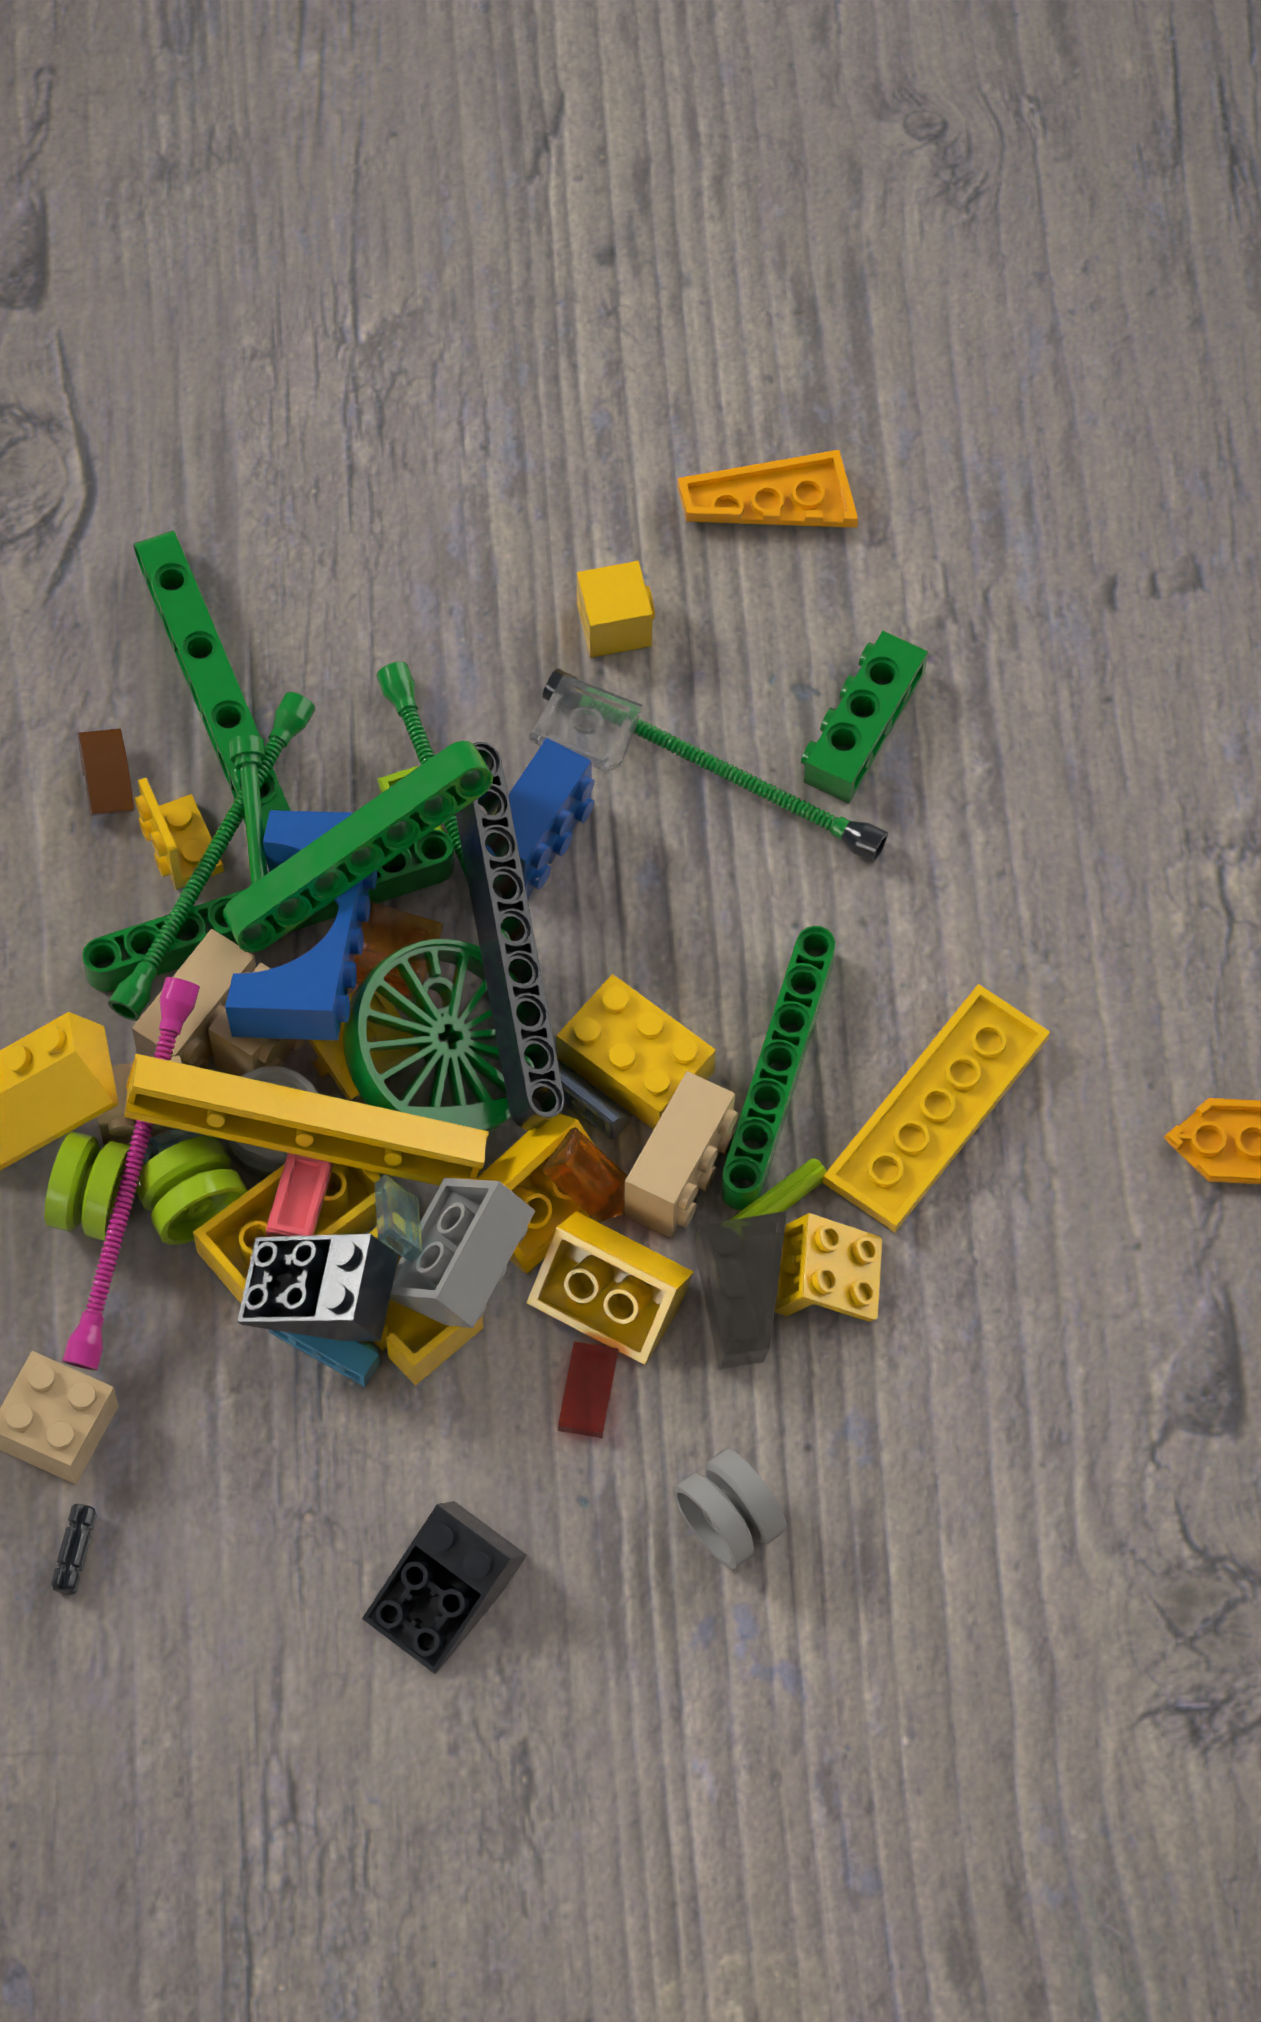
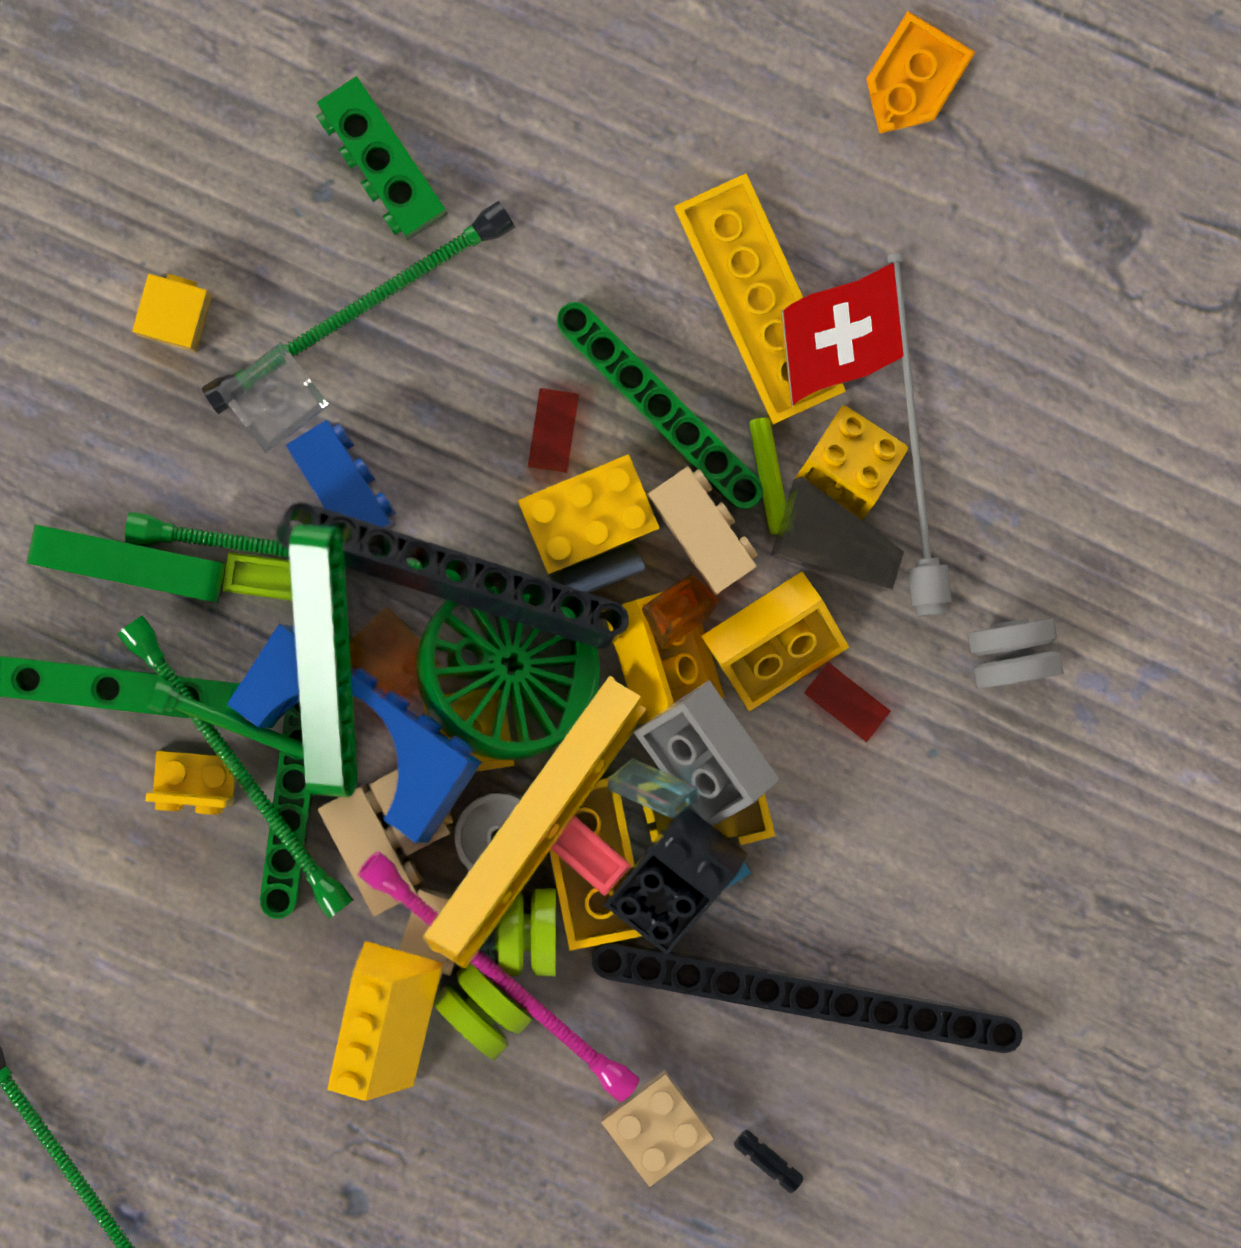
camera: 60 degrees left, 25 degrees up
(106, 772) = (99, 811): reddish brown slope -> none
(270, 1515) = (824, 1006): none -> black beam
(357, 685) = (126, 563): none -> green beam
(443, 1585) = (949, 895): black slope -> none
(700, 989) = (553, 430): none -> clear red tile
(779, 492) = (127, 108): light orange wing -> none
(952, 1204) = (846, 337): none -> red flag

